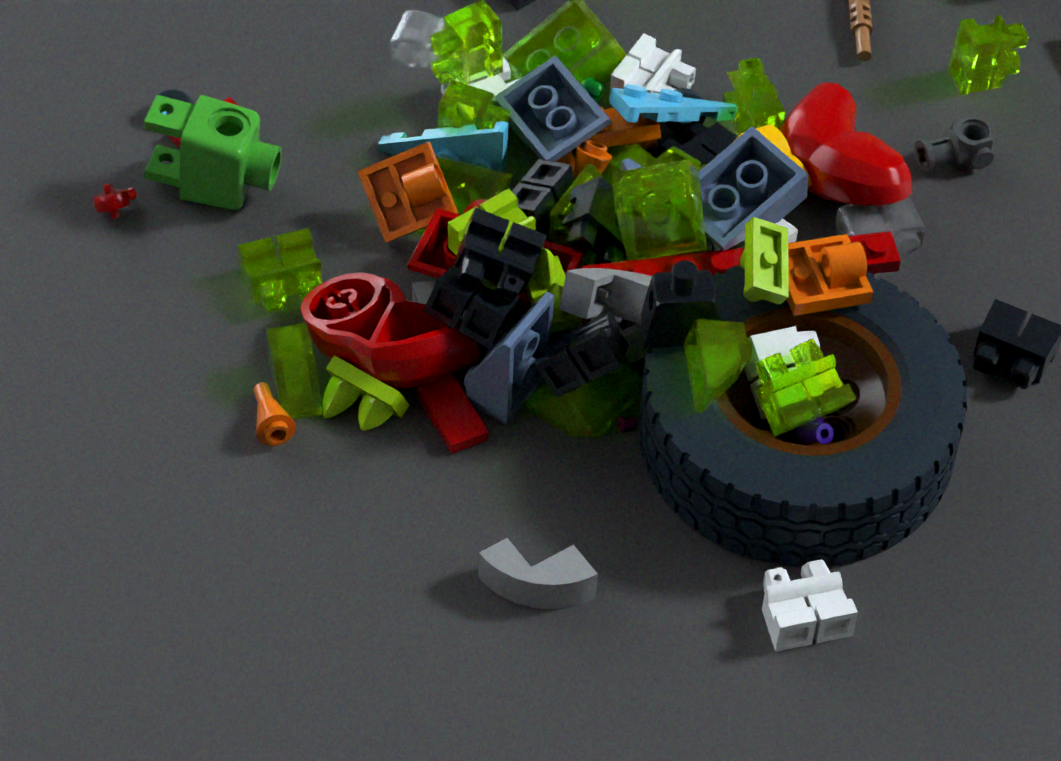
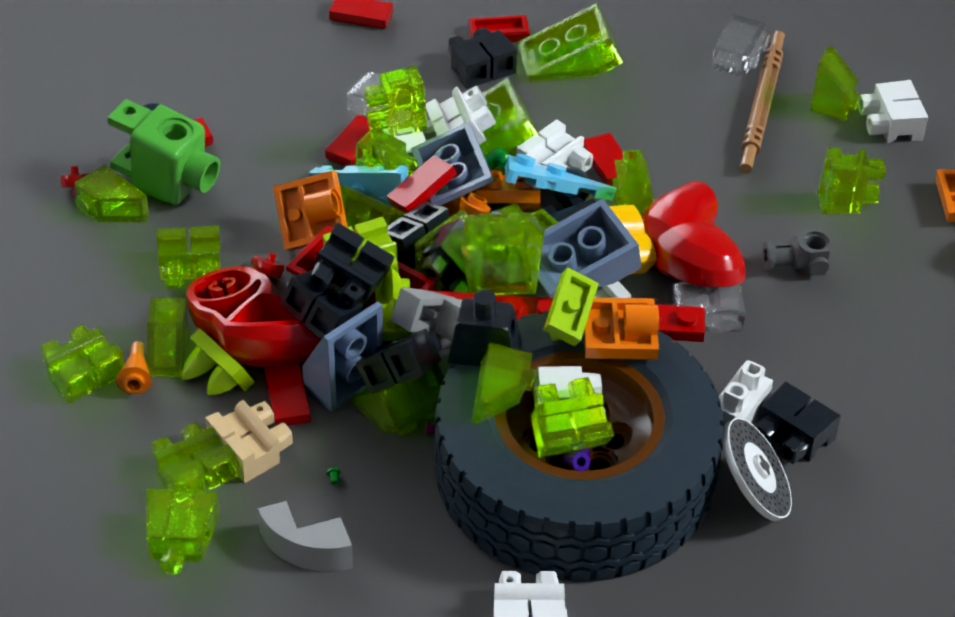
camera: 15 degrees right, 5 degrees down
(163, 215) = (110, 197): none -> clear neon green slope
(208, 420) = (82, 362): none -> clear neon green hips
(375, 265) = (268, 266): none -> red piece
(380, 514) = (194, 461): none -> clear neon green hips
(392, 589) = (180, 526): none -> clear neon green torso
(415, 98) = (344, 146): none -> red tile
(429, 474) = (250, 438): none -> tan hips
(527, 140) = (421, 184): none -> tile
(529, 44) = (461, 110): none -> white hips
(537, 495) = (333, 474): none -> green piece
(710, 68) = (604, 152): none -> red tile
(960, 318) = (746, 393): none -> white hips
(1000, 404) = (757, 469): none -> piece

